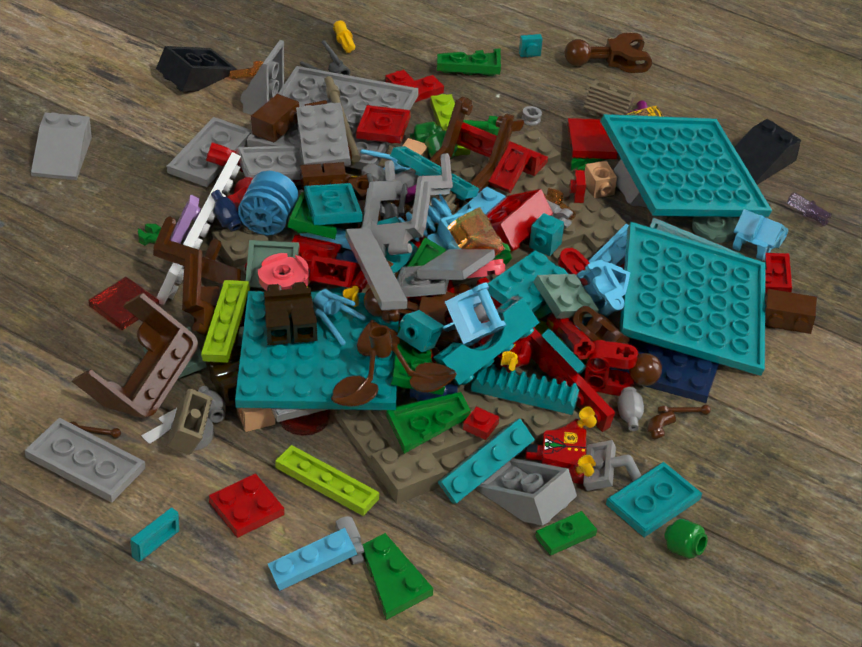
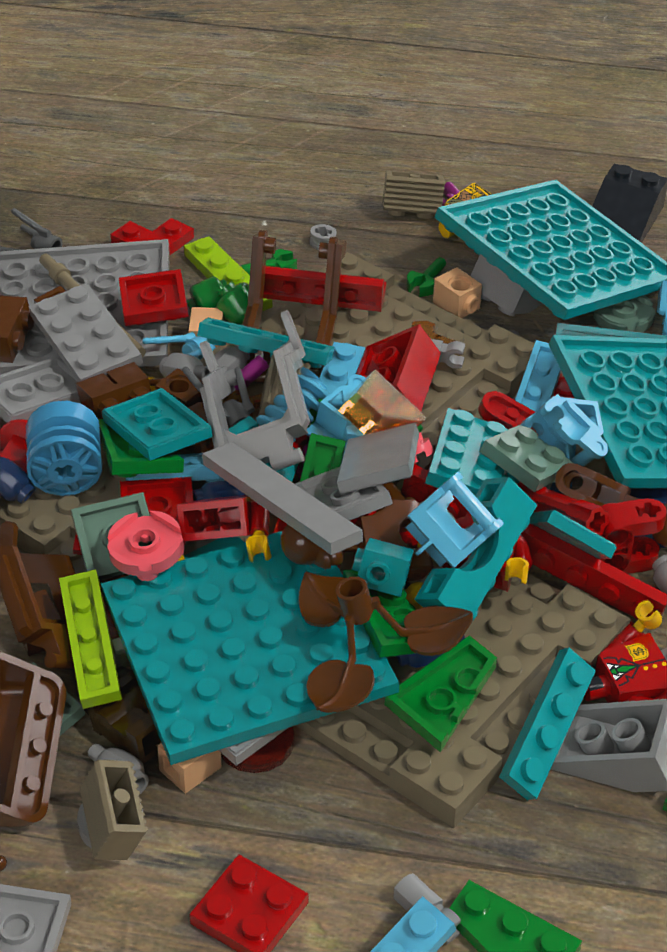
camera: 20 degrees left, 0 degrees up
(157, 432) = (66, 814): white sticker -> none
(288, 306) = (188, 598): dark brown hips -> none
(327, 480) = (344, 828): lime plate -> none
(330, 303) = (235, 566): medium azure plant -> none
(344, 36) = (28, 198): yellow axle -> none
(478, 62) = (210, 192): green wing -> none
(481, 423) = (515, 671): red plate -> none
(510, 168) = (353, 309): red plate -> none
(526, 389) = (549, 603): teal gear -> none
(530, 45) = (273, 149): teal plate -> none
(546, 234) = (449, 375): teal brick -> none
(578, 186) = (450, 308): red plate -> none
(590, 139) = (416, 245): red tile -> none
(617, 53) = (382, 131): reddish brown piece -> none

